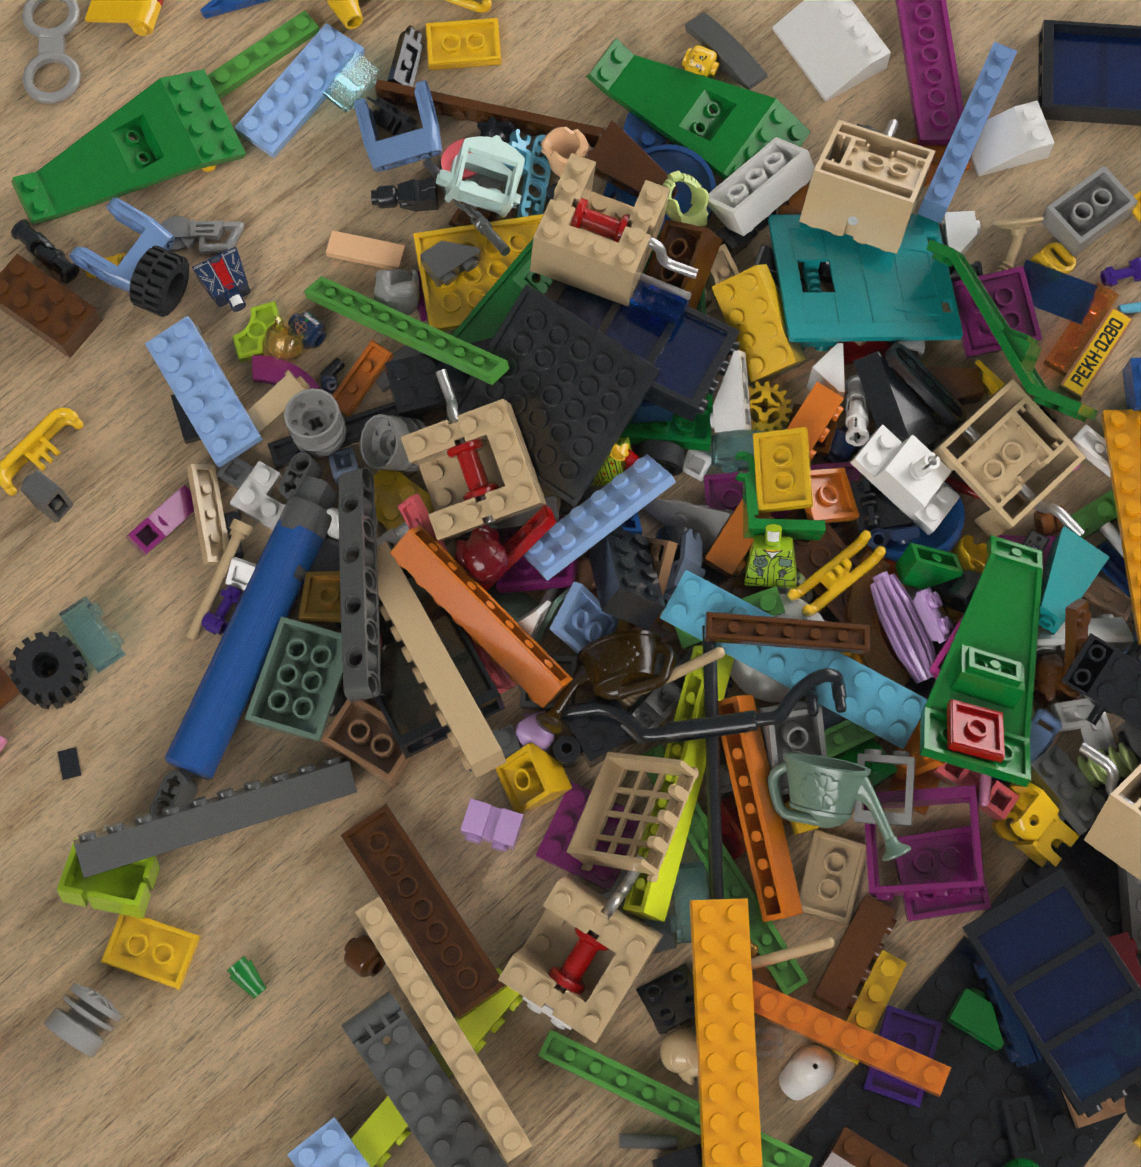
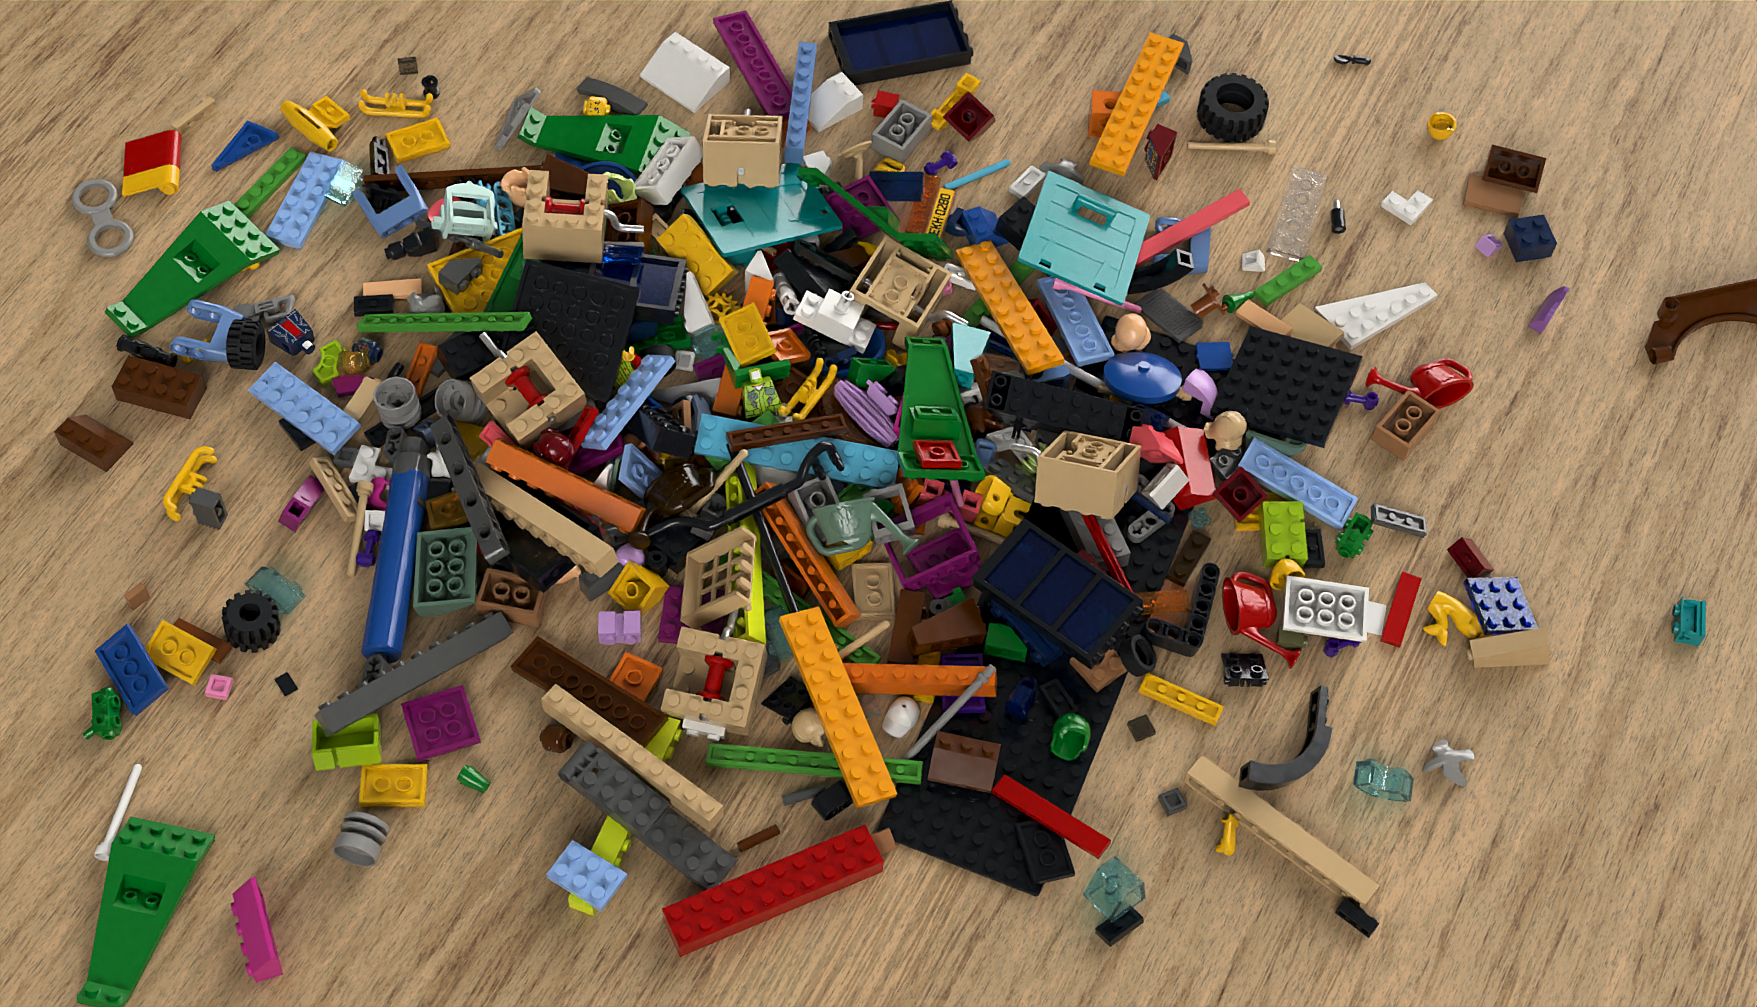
camera: 25 degrees left, 15 degrees down
(232, 884) = (440, 723): none -> magenta plate
(261, 526) = (375, 498): none -> dark pink piece
(335, 266) = (373, 304): none -> black plate
(488, 903) = (636, 675): none -> orange plate
(601, 36) = (515, 115): none -> light grey wing
(914, 978) = (949, 629): none -> reddish brown slope
(918, 937) = (940, 605): none -> leg
(927, 1083) = (948, 714): none -> light grey bar
(956, 354) = (844, 241): none -> black piece
(962, 810) = (947, 520): none -> tan piece
(969, 1114) = (1021, 697): none -> clear blue piece
(1080, 162) = (884, 103): none -> red brick
(1115, 365) = (953, 224): none -> dark blue plate

